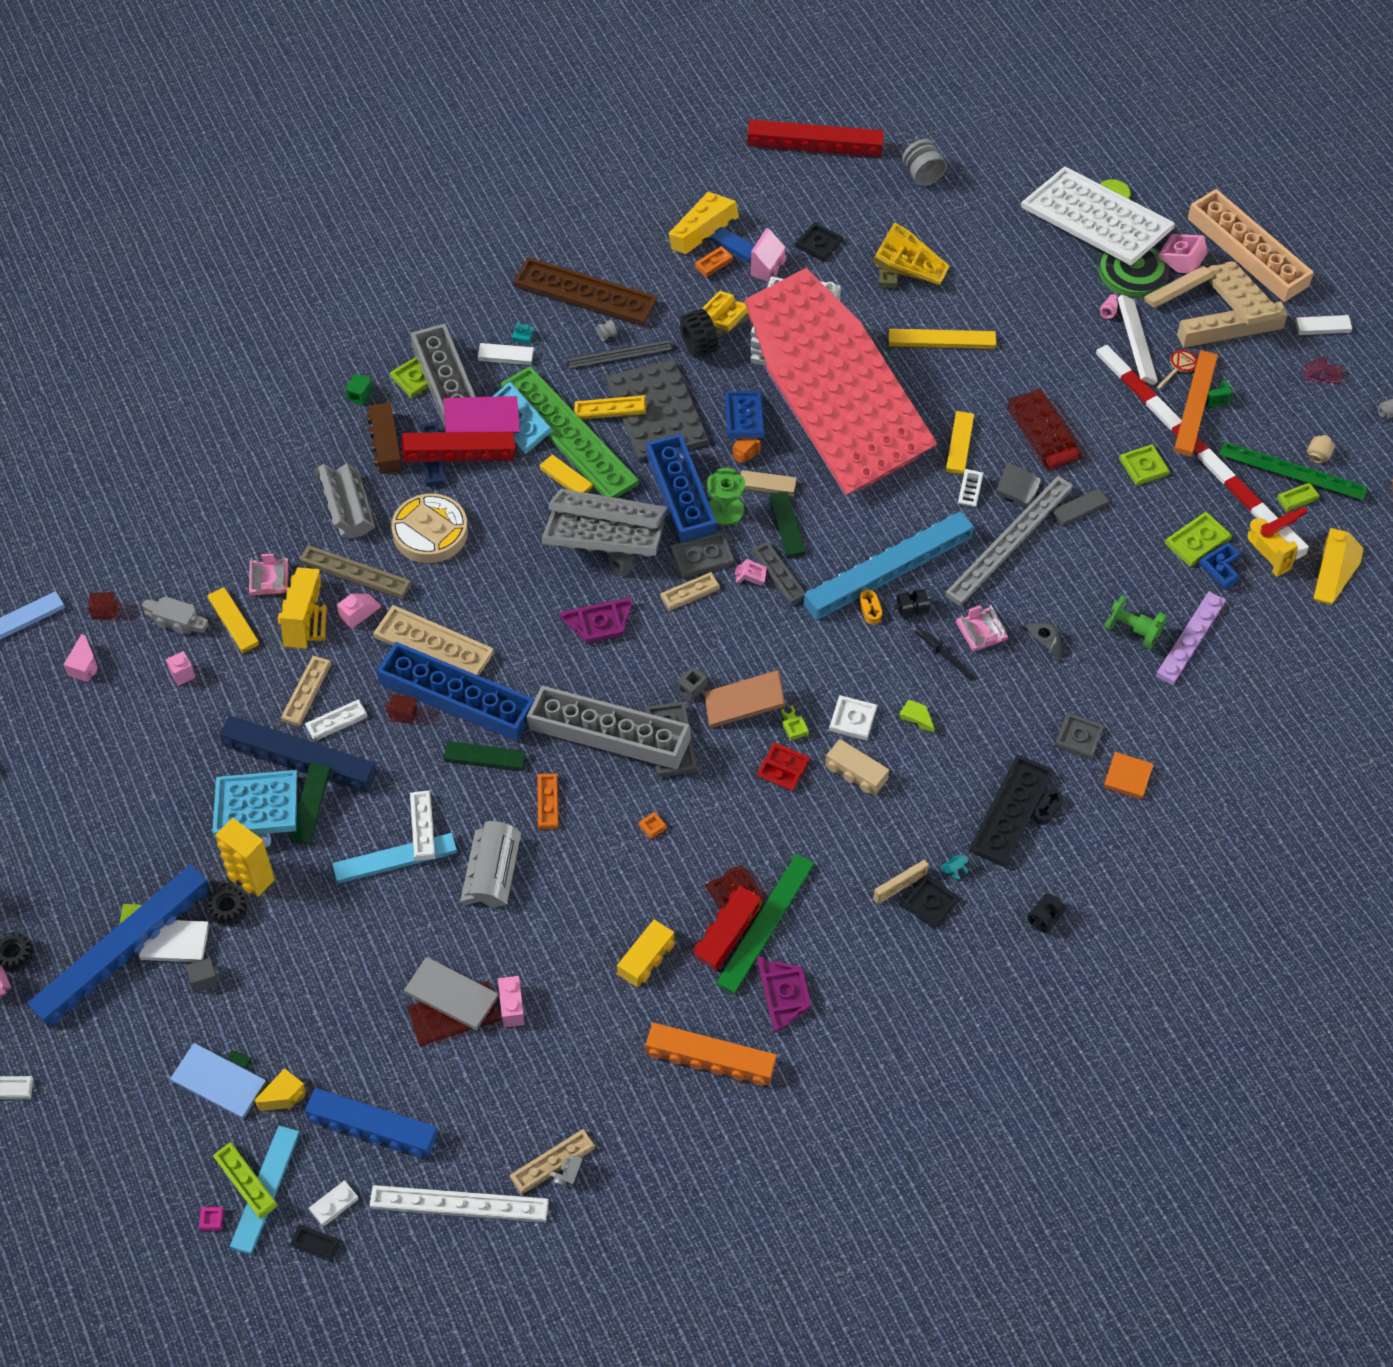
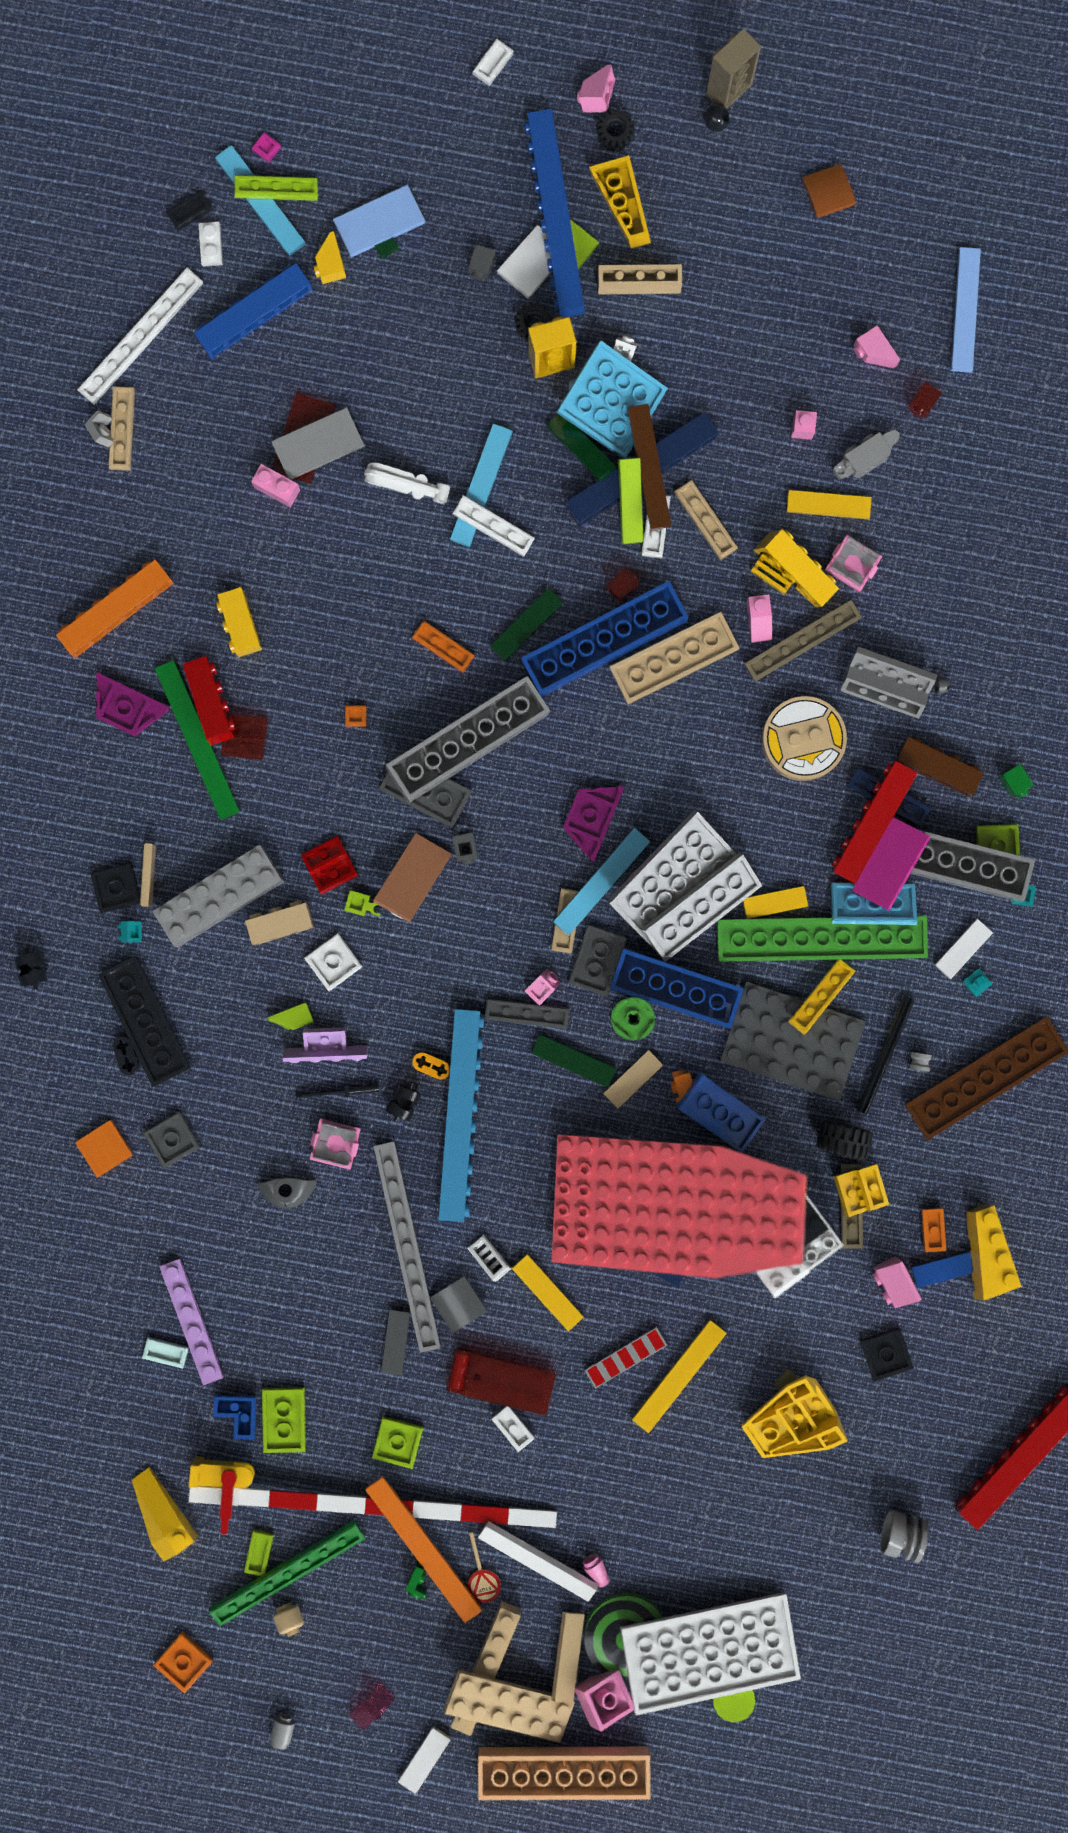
camera: 130 degrees right, 30 degrees up
(72, 904) = (619, 189): none -> yellow wedge
(137, 848) = (639, 279): none -> tan brick
(202, 826) = (625, 347): none -> white bracket
(293, 741) = (650, 467): none -> reddish brown tile
(330, 739) = (630, 500): none -> lime tile
(436, 908) = (405, 482): none -> white piece
(491, 864) = (411, 554): light grey brick -> none
(642, 584) = (601, 881): none -> medium azure tile
(873, 821) = (218, 896): none -> light grey brick
(920, 678) = (325, 1045): none -> lavender bracket
(959, 374) = (625, 1357): none -> tile
(1068, 404) = (513, 1428): none -> white plate
(1142, 625) = (226, 1282): bright green piece -> none
(1228, 640) = (165, 1352): none -> light aqua tile

